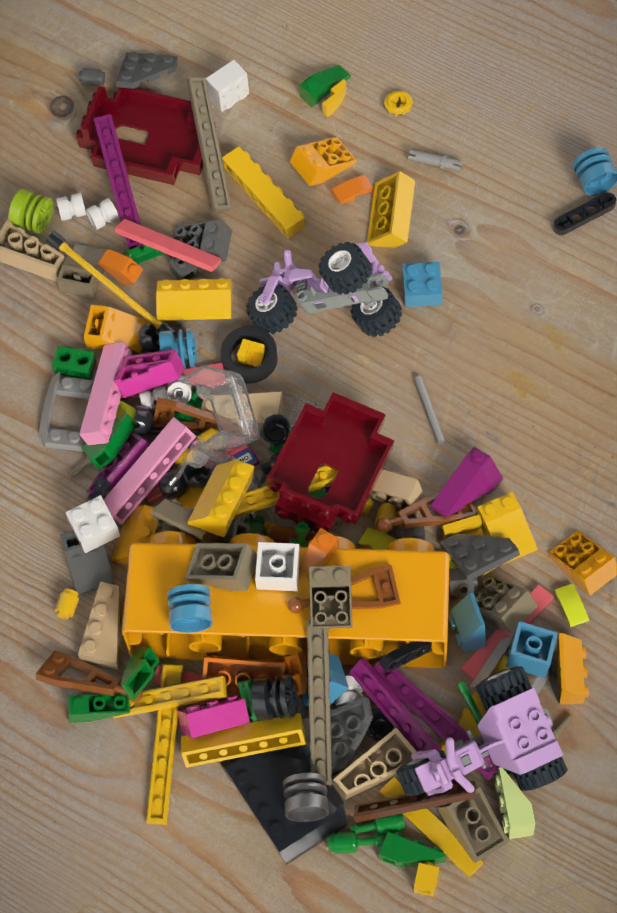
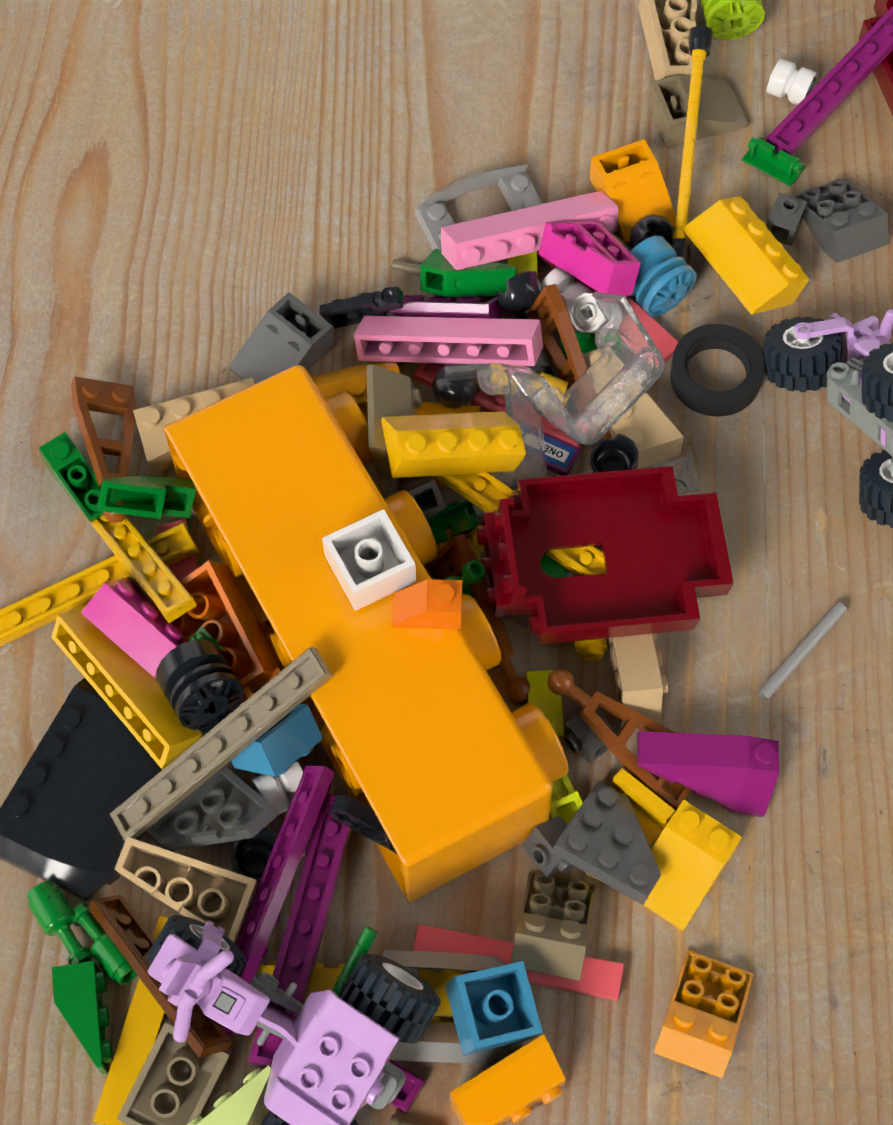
camera: 55 degrees right, 0 degrees up
(67, 604) = (205, 362): yellow brick -> none
(71, 206) = (775, 43): white wheel -> none
(73, 366) = (552, 167): green brick -> none
(92, 524) = (320, 316): white brick -> none
(120, 267) = (727, 142): orange slope -> none
(168, 245) = (800, 177): coral tile -> none
(189, 608) = (236, 478): dark azure wheel -> none
(196, 477) = (477, 401): black hair -> none
(222, 565) = (328, 489): dark tan slope -> none
(251, 353) = (719, 369): yellow panel -> none
(305, 797) = (75, 813): flat silver wheel -> none
(330, 597) = (363, 655): dark tan slope -> none
(384, 584) = (434, 728): dark orange plate -> none
(386, 510) = (592, 680): yellow brick -> none
(426, 879) = (55, 1060): yellow brick -> none
(468, 624) = (486, 895): dark azure slope -> none
(572, 605) = (621, 1033): neon yellow slope -> none

